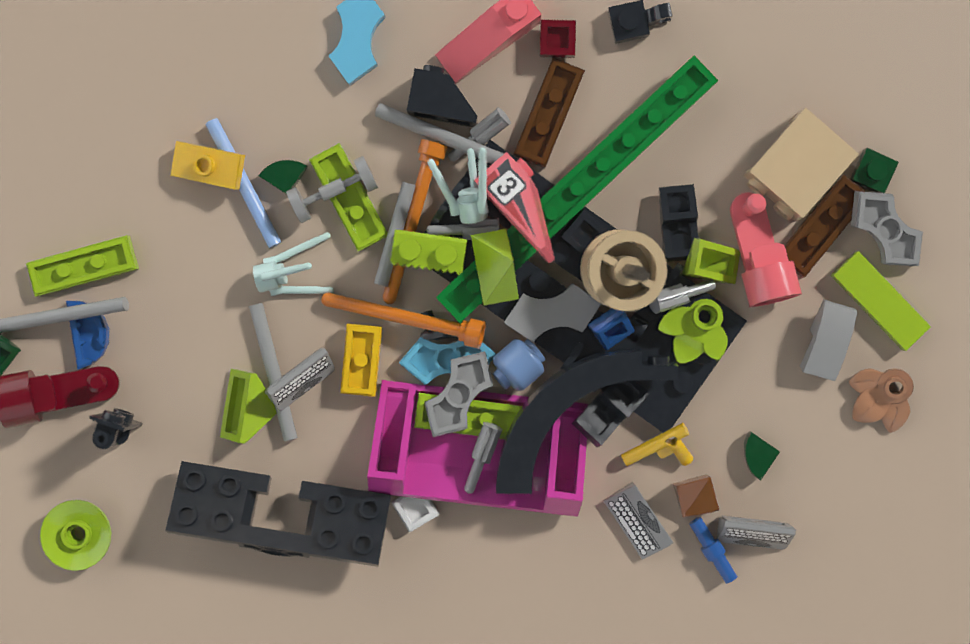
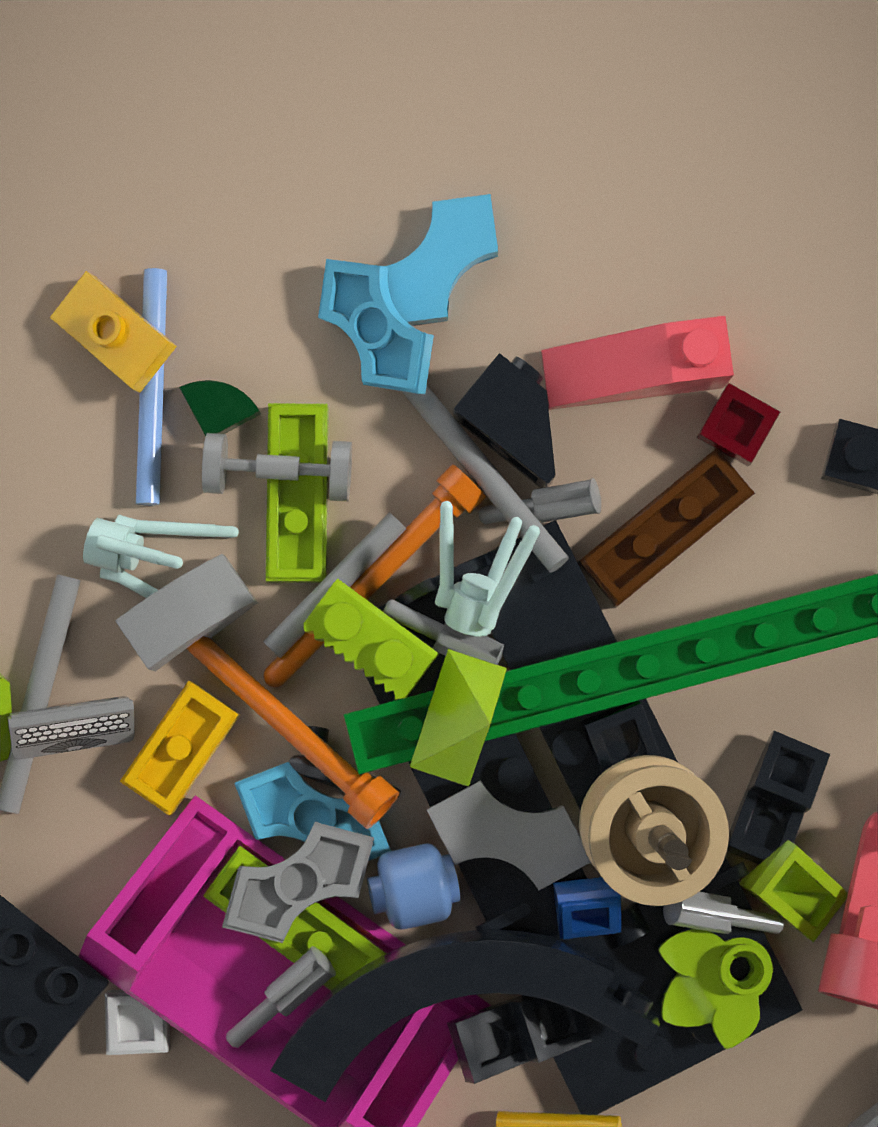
camera: 30 degrees right, 5 degrees down
(325, 289) = (186, 610): none -> light grey slope
(355, 95) = (389, 347): none -> medium azure tile
(518, 200) = (549, 635): coral slope -> none

